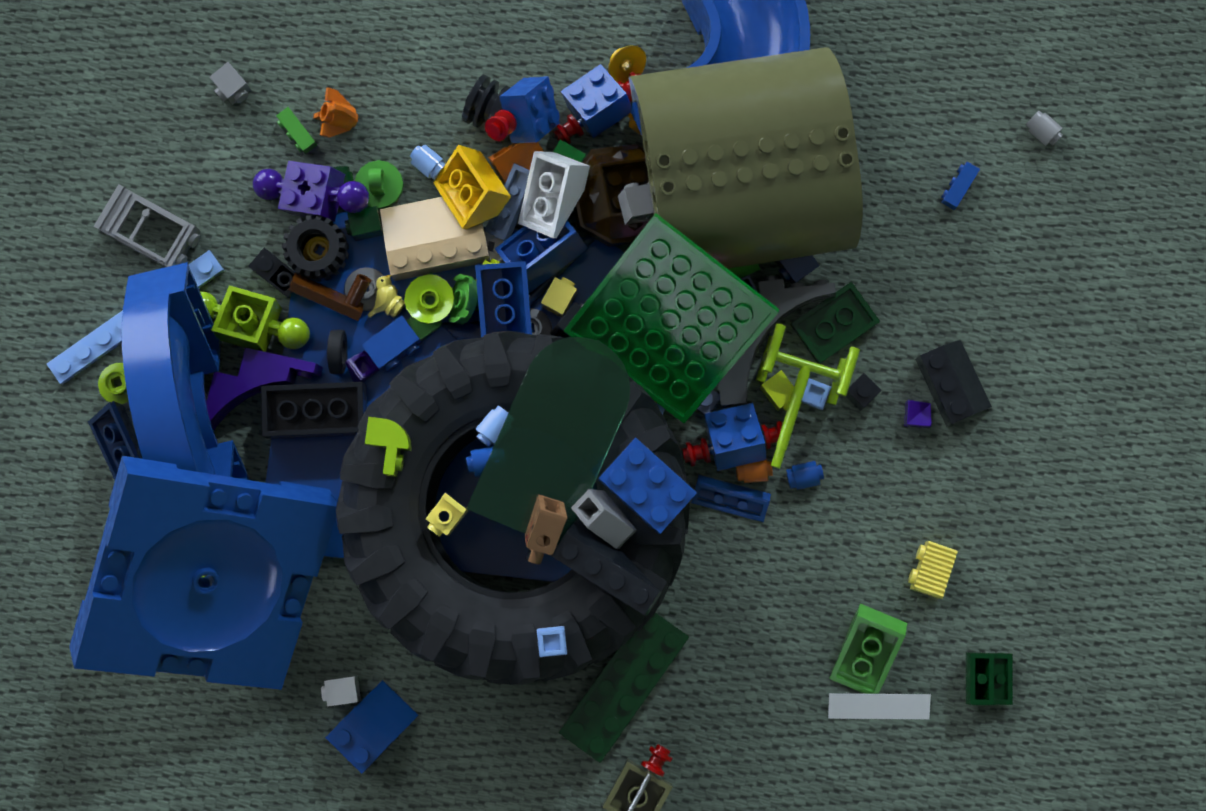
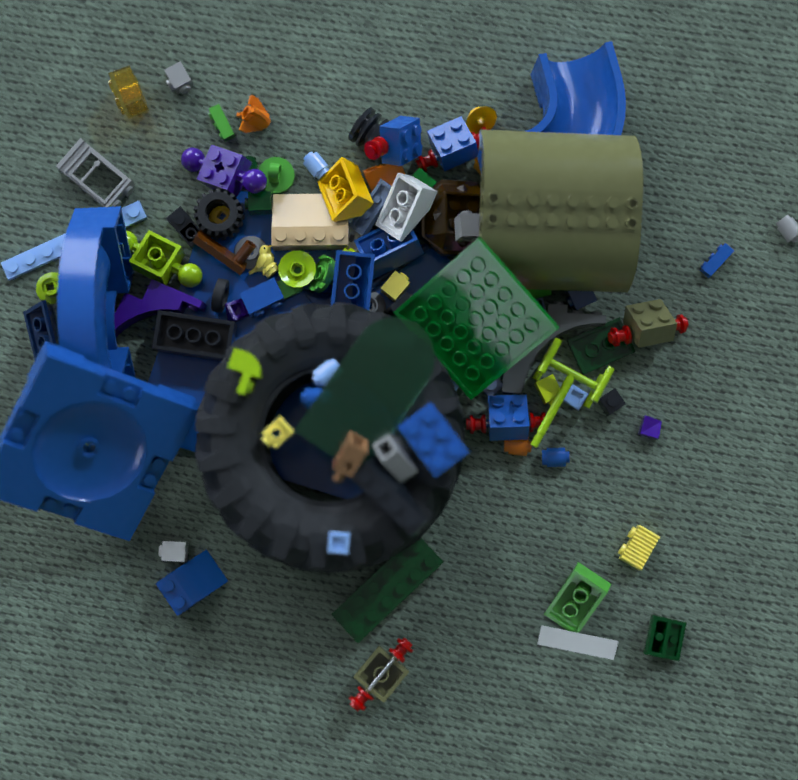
camera: 10 degrees right, 0 degrees up
(168, 114) = (127, 92): none -> clear yellow brick
(733, 496) = (497, 462): blue slope -> none
(889, 284) = (648, 325): none -> olive brick
(953, 382) = (682, 408): black slope -> none

